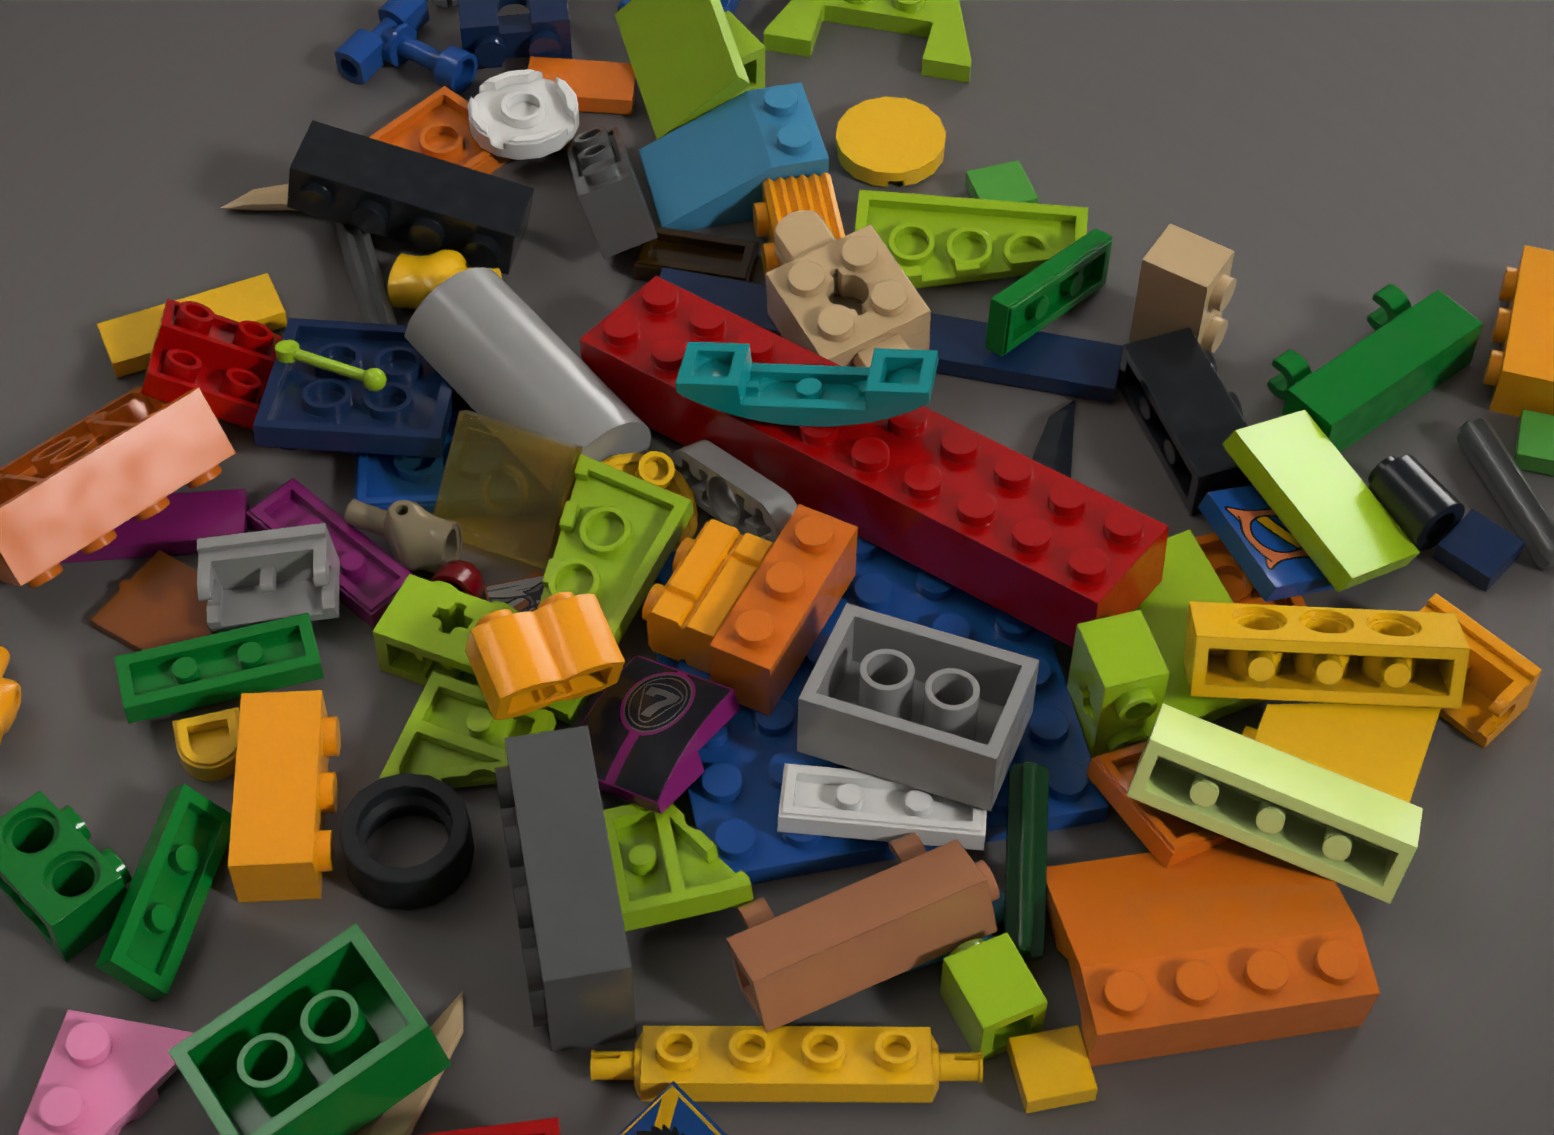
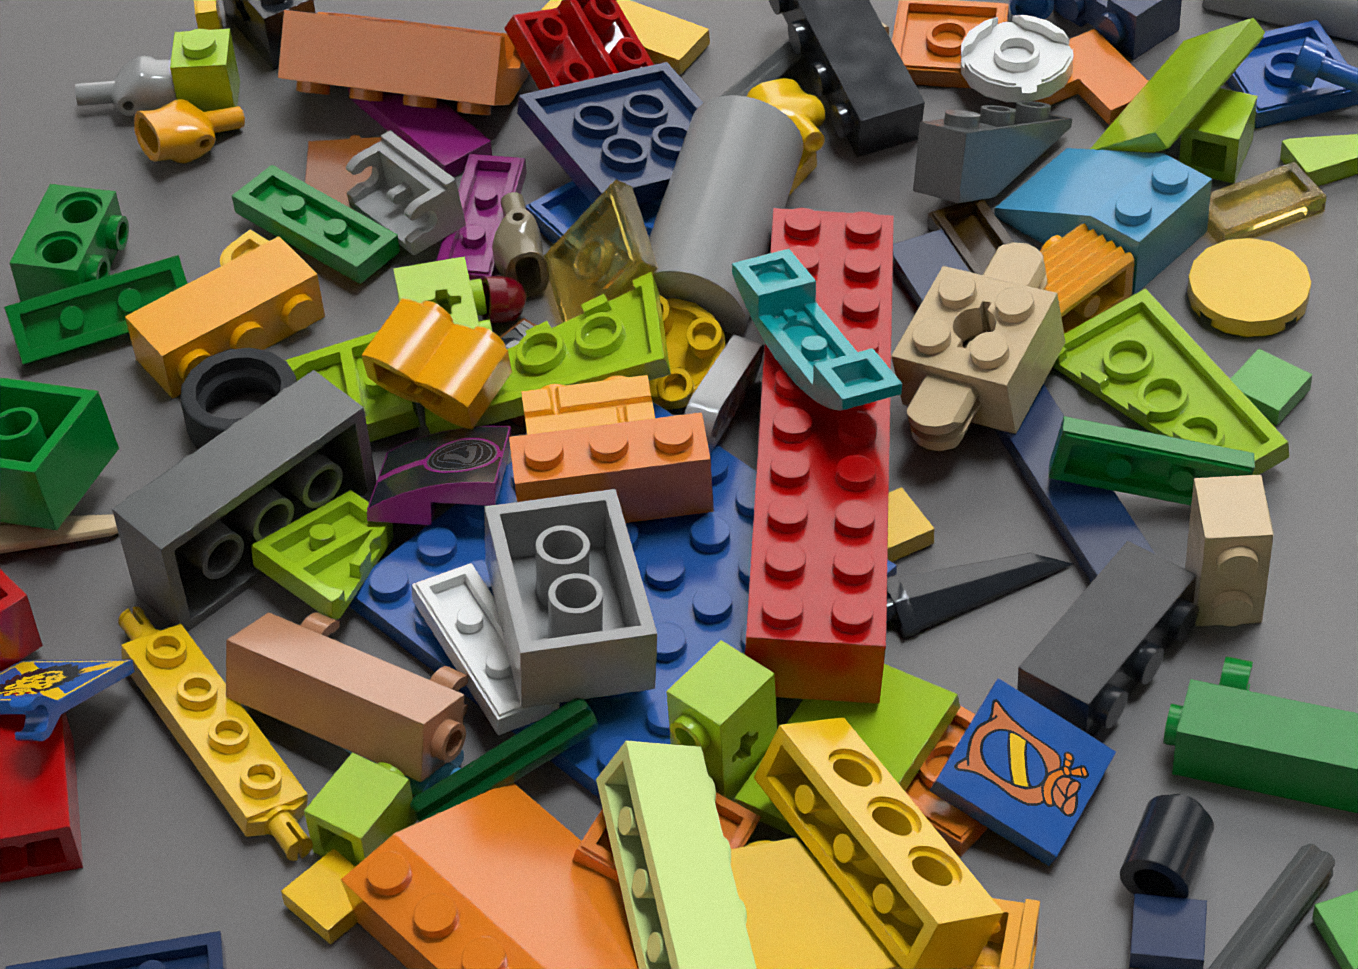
camera: 60 degrees right, 5 degrees down
(289, 352) = (620, 76): lime hinge -> none
(819, 71) = (1264, 204): none -> clear yellow tile
(1320, 499) = (1080, 768): tile -> none

